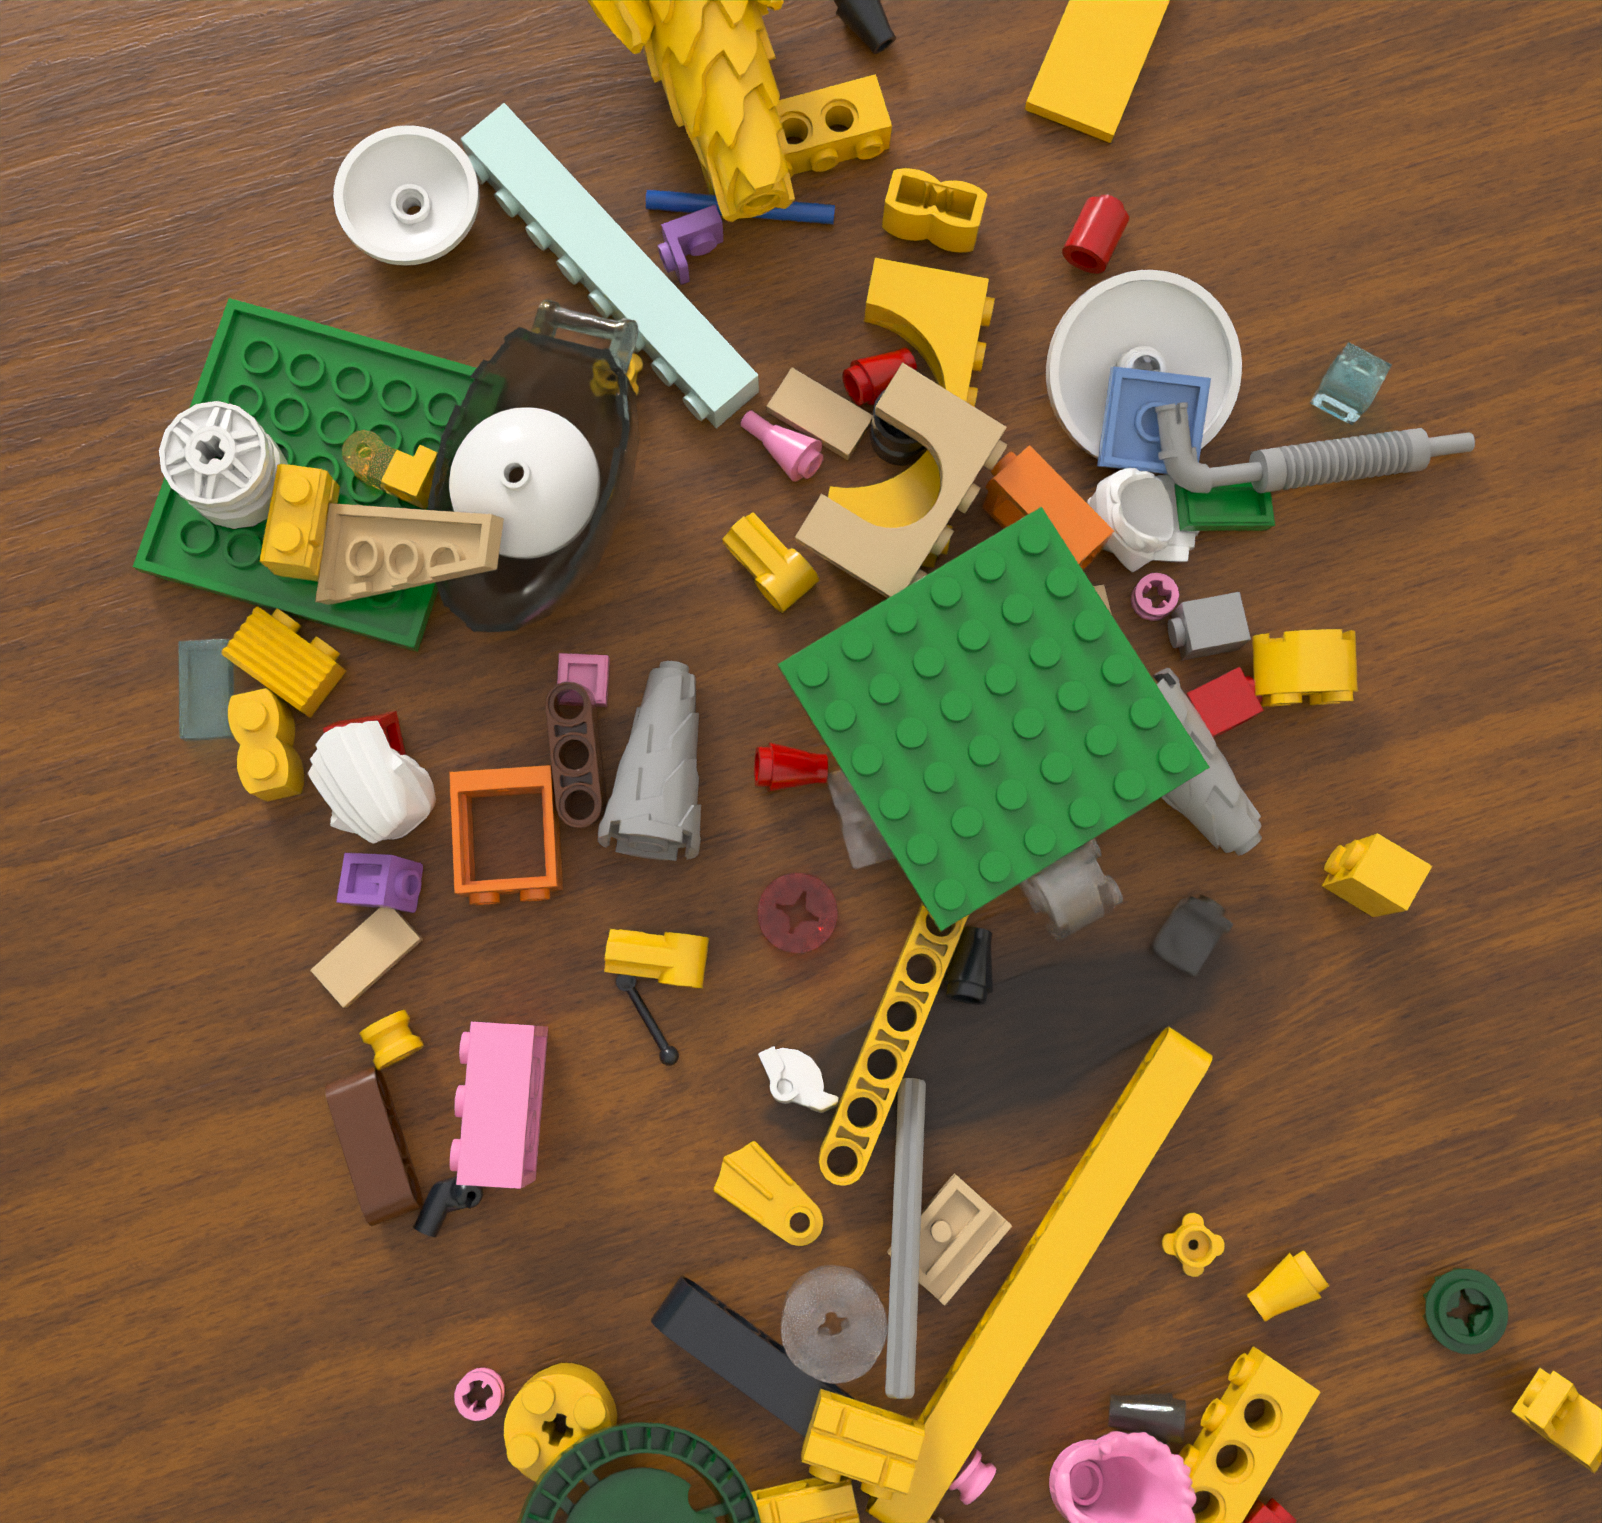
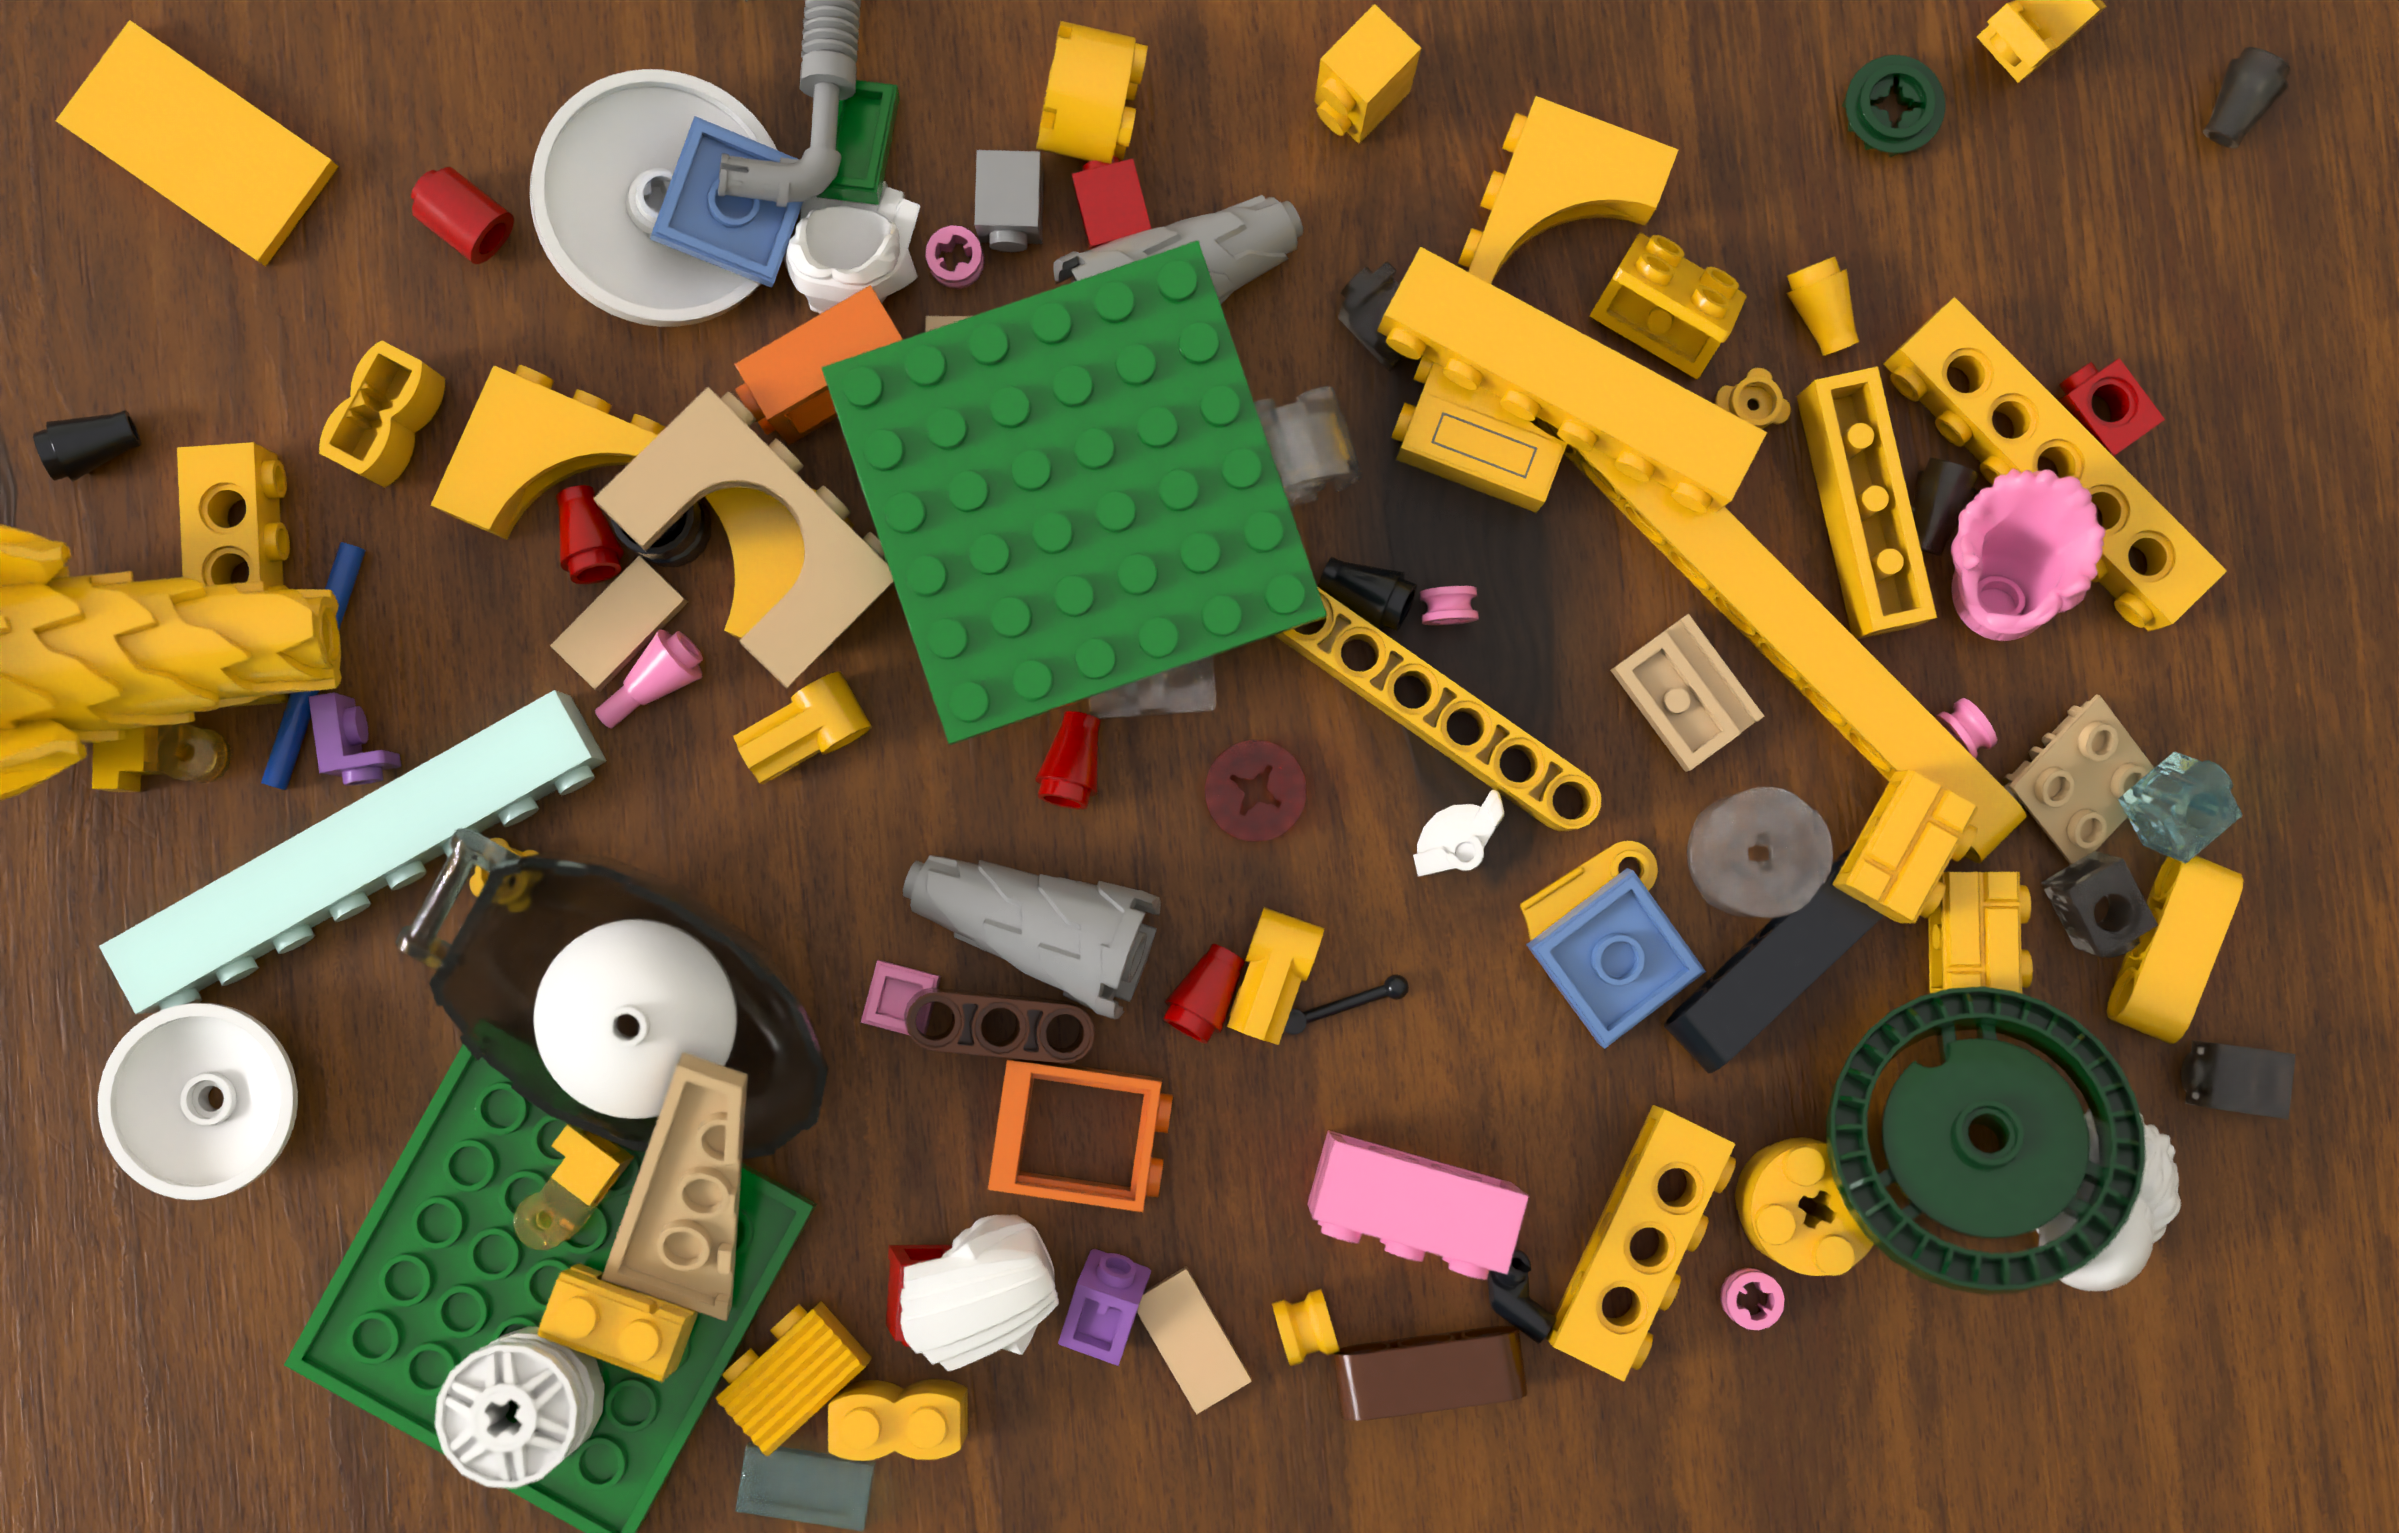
camera: 75 degrees left, 5 degrees up
(425, 1294) = (1607, 1263): none -> yellow brick
(632, 907) = (1205, 994): none -> red cone
(656, 125) = (170, 750): none -> clear yellow leg
(727, 1225) = (1616, 957): none -> medium blue plate
(905, 1240) = (1678, 744): light grey axle -> none
(975, 1032) = (1449, 605): none -> bright pink bush
(1134, 1353) = (1865, 503): none -> yellow brick
(1171, 1088) = (1570, 383): none -> yellow brick
(1257, 1158) = (1670, 304): none -> yellow bracket
(1339, 1045) = (1559, 173): none -> yellow arch

